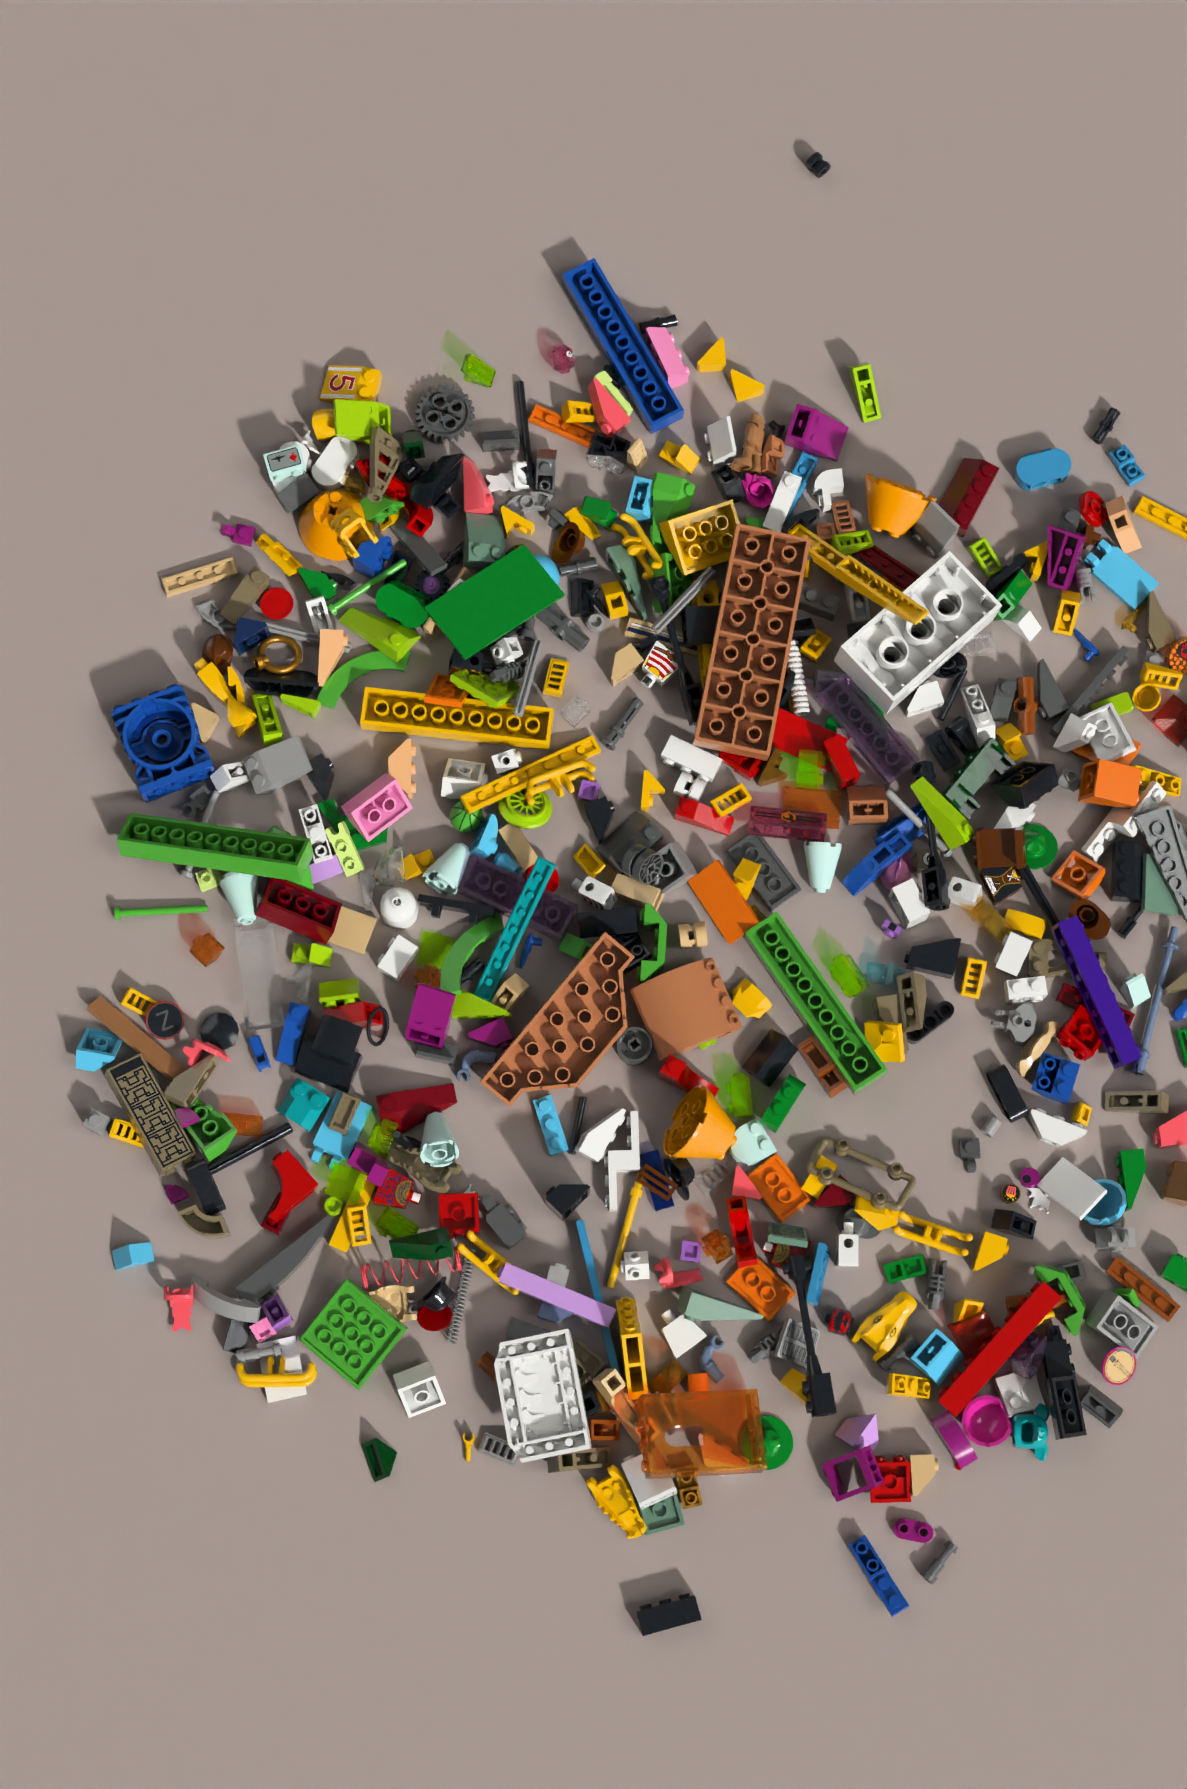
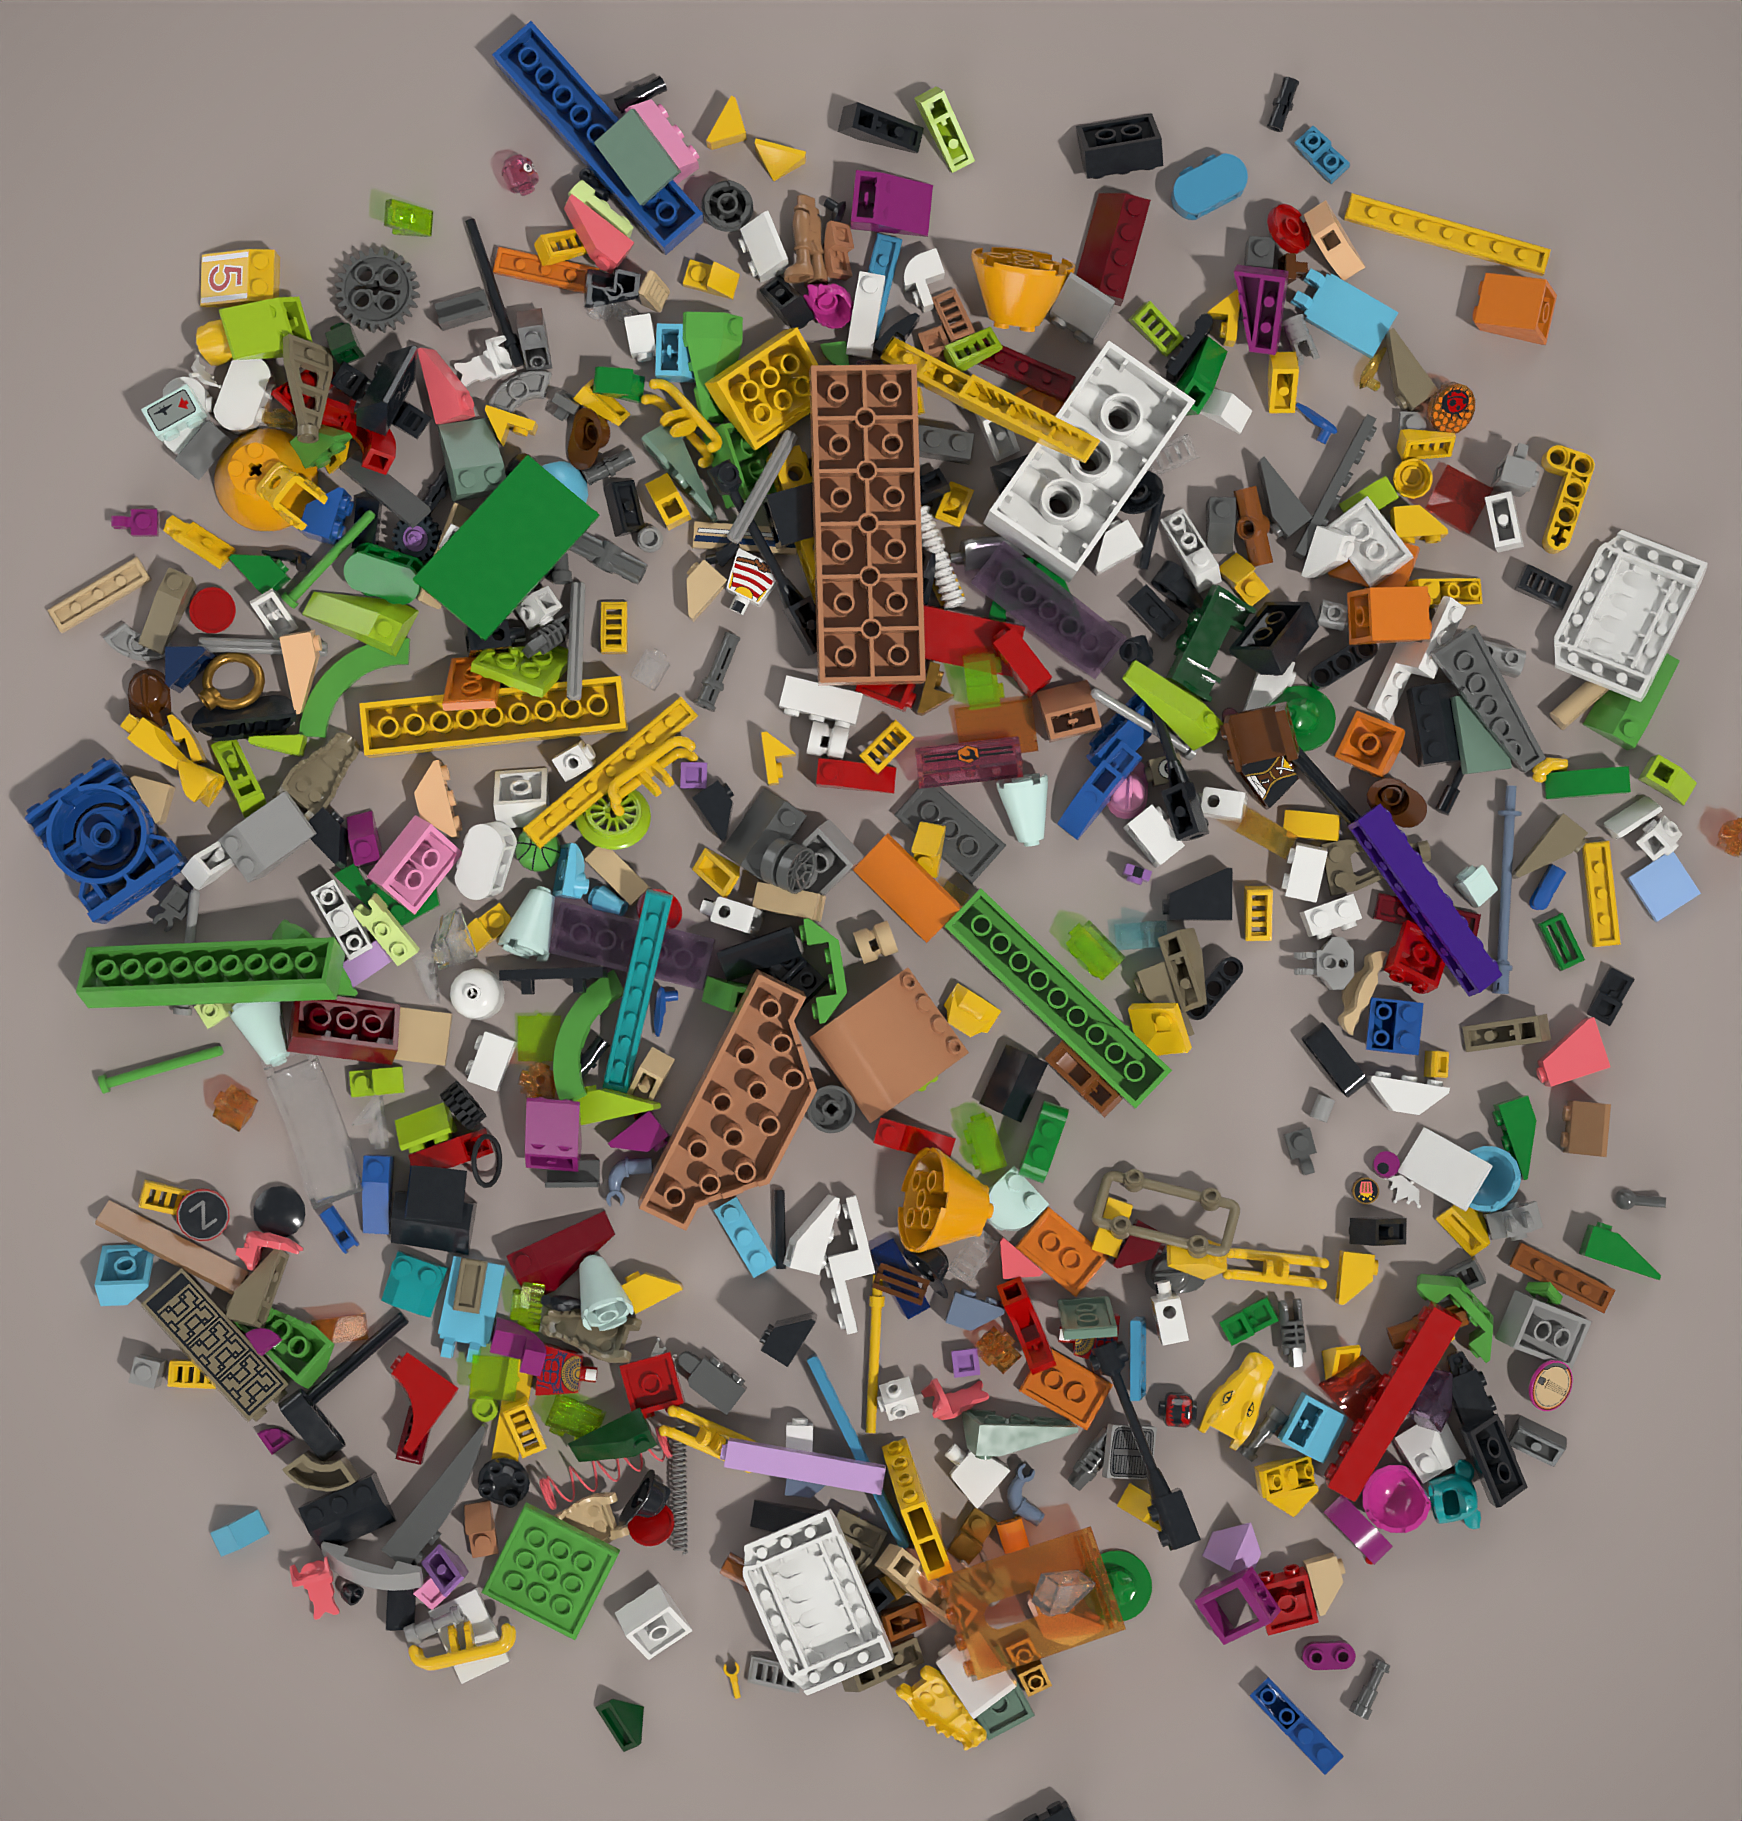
camera: 15 degrees left, 10 degrees up
(204, 1318) = (351, 1593): none -> black hinge
(216, 1257) = (348, 1512): none -> black slope
(309, 1293) = (481, 1529): none -> nougat slope
(322, 733) = (318, 777): none -> dark tan animal
(334, 1261) = (503, 1482): none -> black dish
(344, 784) = (364, 839): none -> magenta slope
(370, 983) = (463, 1105): none -> black tyre
(427, 815) = (485, 860): none -> white brick
(473, 1146) = (648, 1289): none -> yellow slope
(595, 600) = (638, 504): black bar -> none
(621, 483) = (641, 337): none -> white slope
(647, 361) = (637, 157): none -> sand green tile
(701, 409) = (727, 206): none -> dark grey cone
(703, 1215) = (971, 1312): none -> sand blue slope
(724, 1429) = (1061, 1591): none -> clear slope
(819, 381) = (879, 128): none -> black slope
(909, 1406) = (1295, 1499): none -> yellow slope
(985, 429) = (1120, 146): none -> black slope
(1064, 821) = (1331, 669): none -> black beam
(1079, 1236) = (1466, 1228): none -> yellow slope
(1143, 730) = (1416, 523): none -> yellow slope

